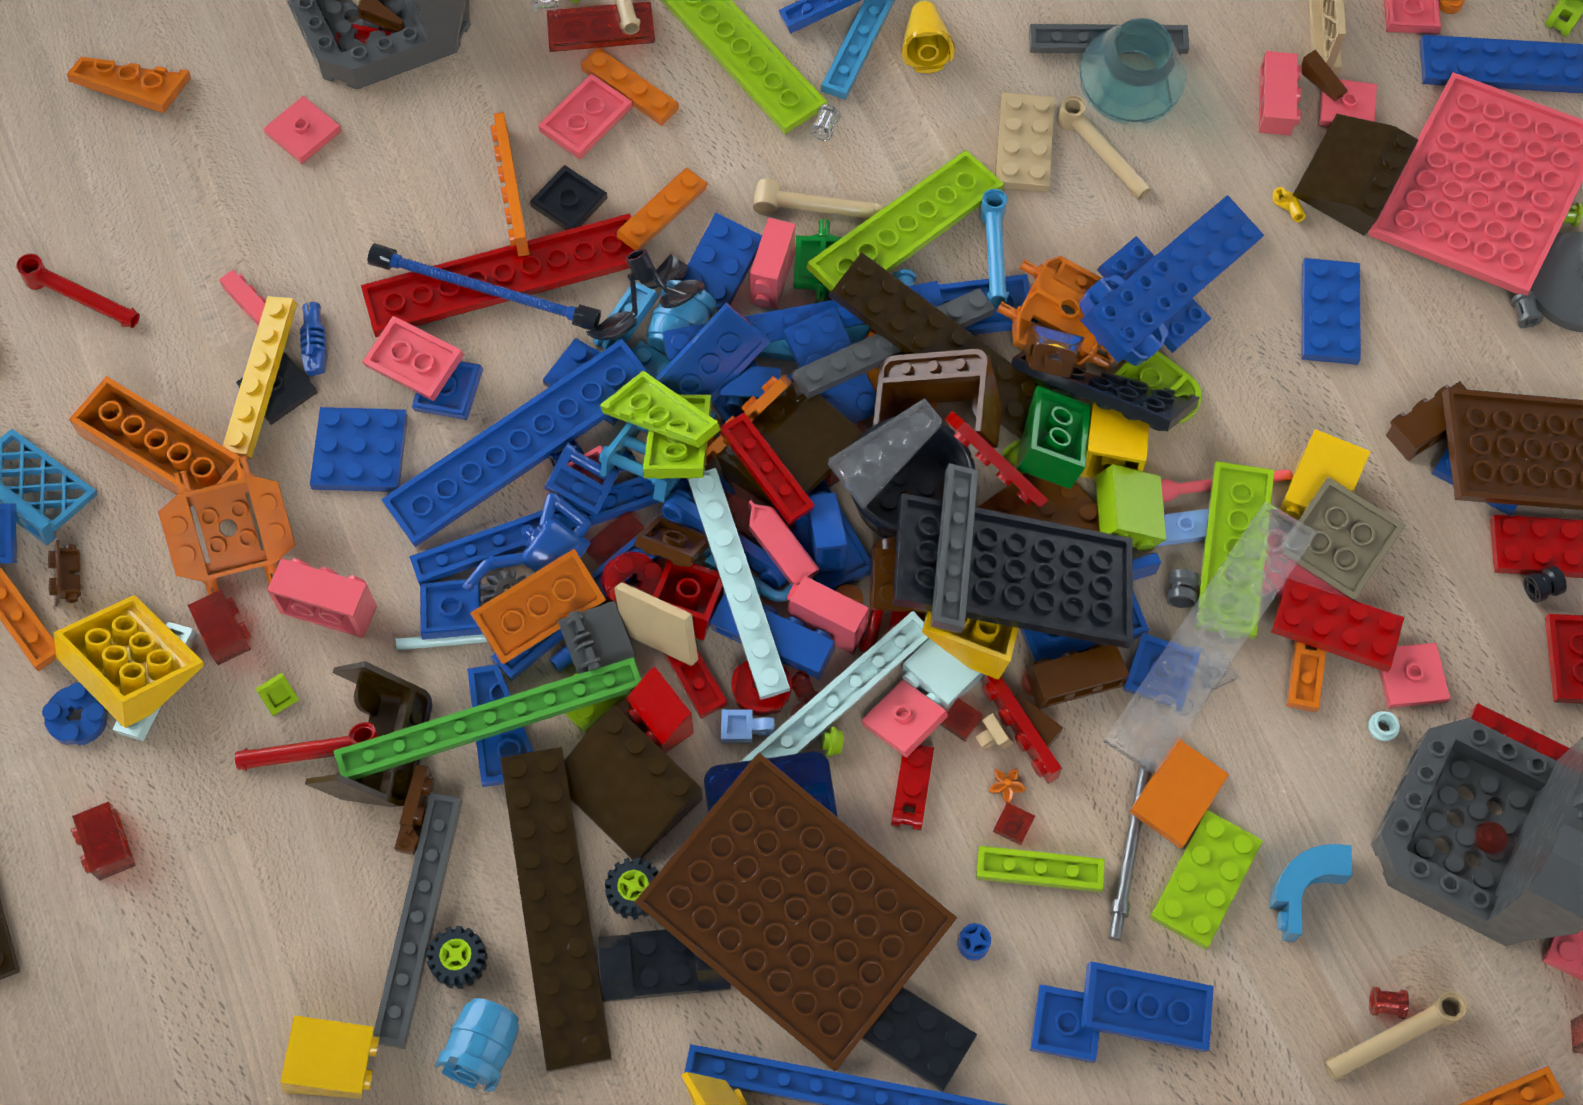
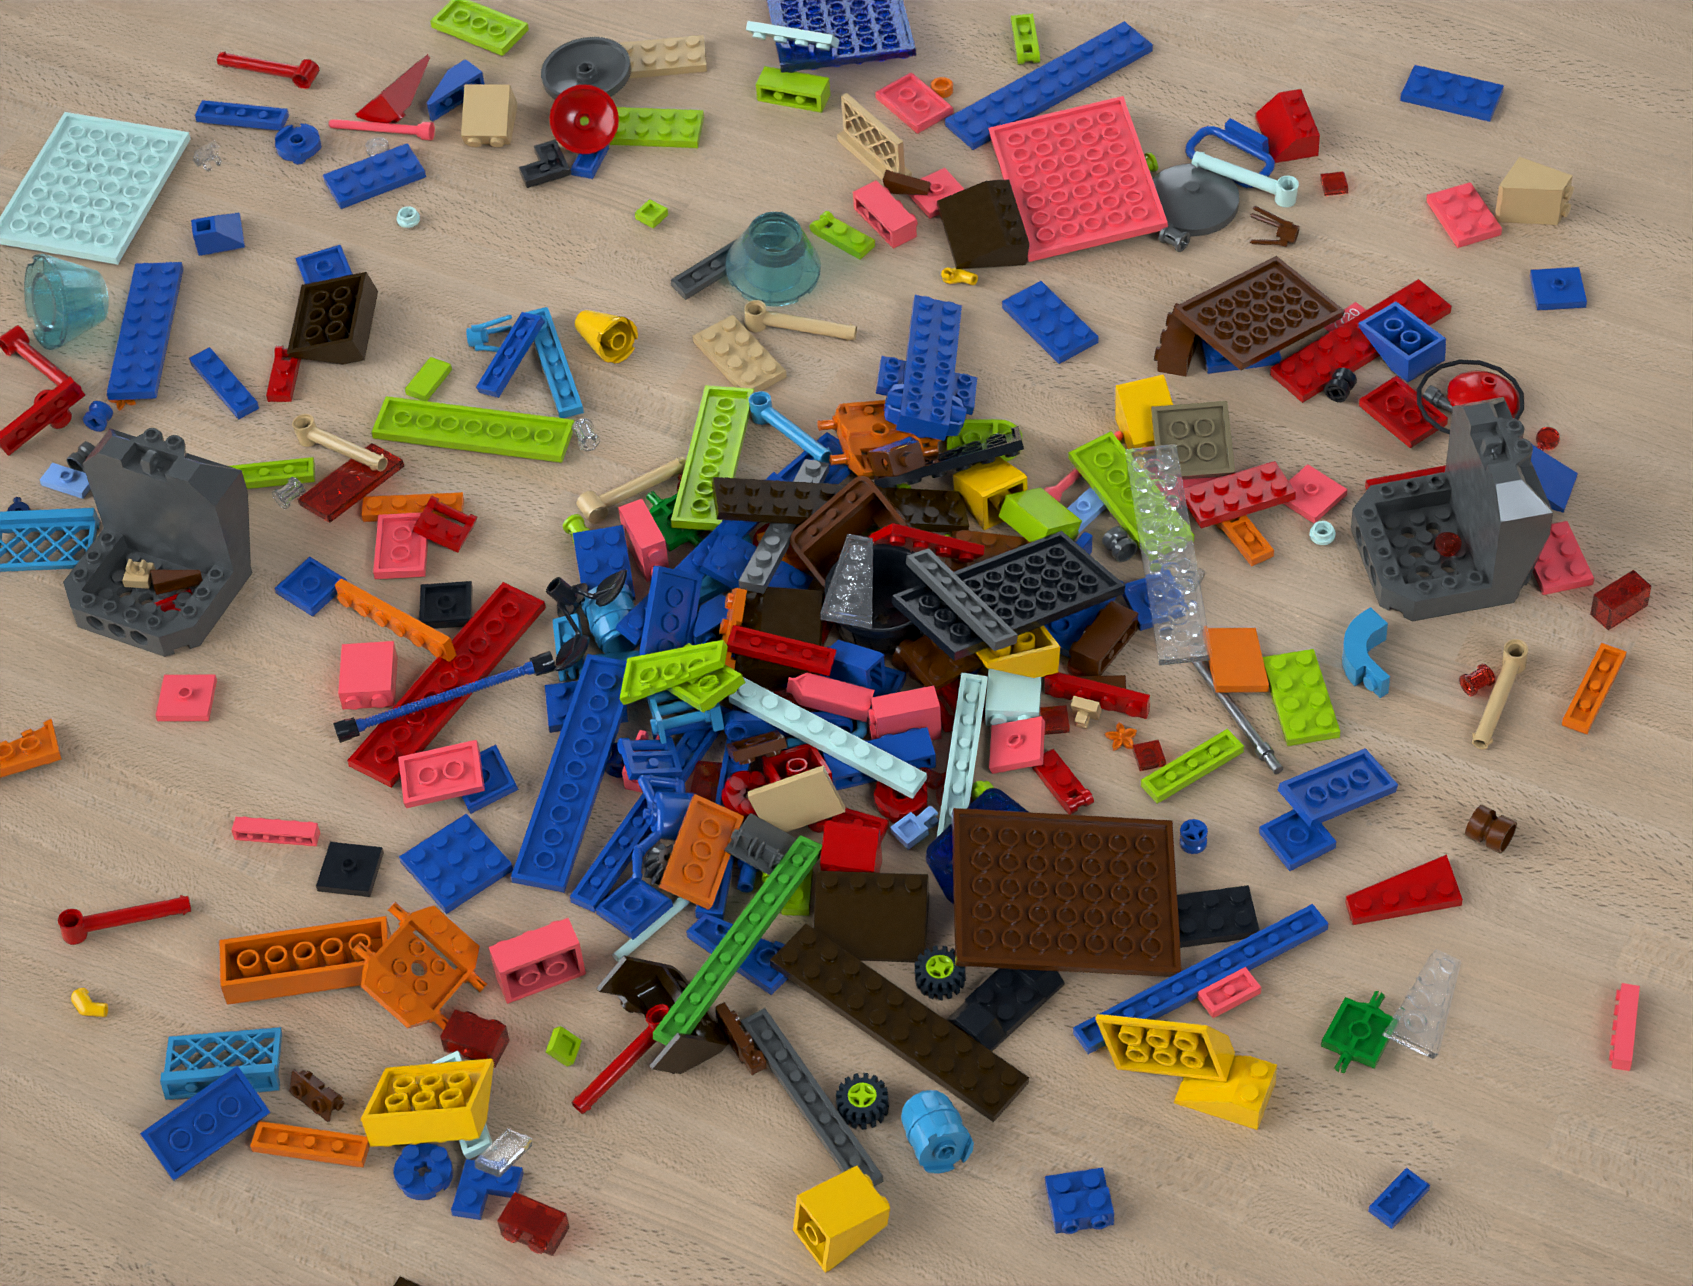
camera: 35 degrees left, 15 degrees down
(105, 762) = (477, 1185): none -> blue plate
(141, 754) = (503, 1153): none -> clear tile
(260, 376) = (332, 860): yellow plate -> none
(313, 340) = (347, 820): blue hinge -> none
(448, 218) = (368, 675): none -> coral brick
(483, 97) = (309, 586): none -> blue tile
(626, 125) = (442, 530): none -> red plate
(662, 209) = (524, 564): orange plate -> none
(736, 207) = (574, 524): none -> lime bush
(1054, 438) = (952, 508): green slope -> none
(1223, 87) = (842, 235): none -> lime plate

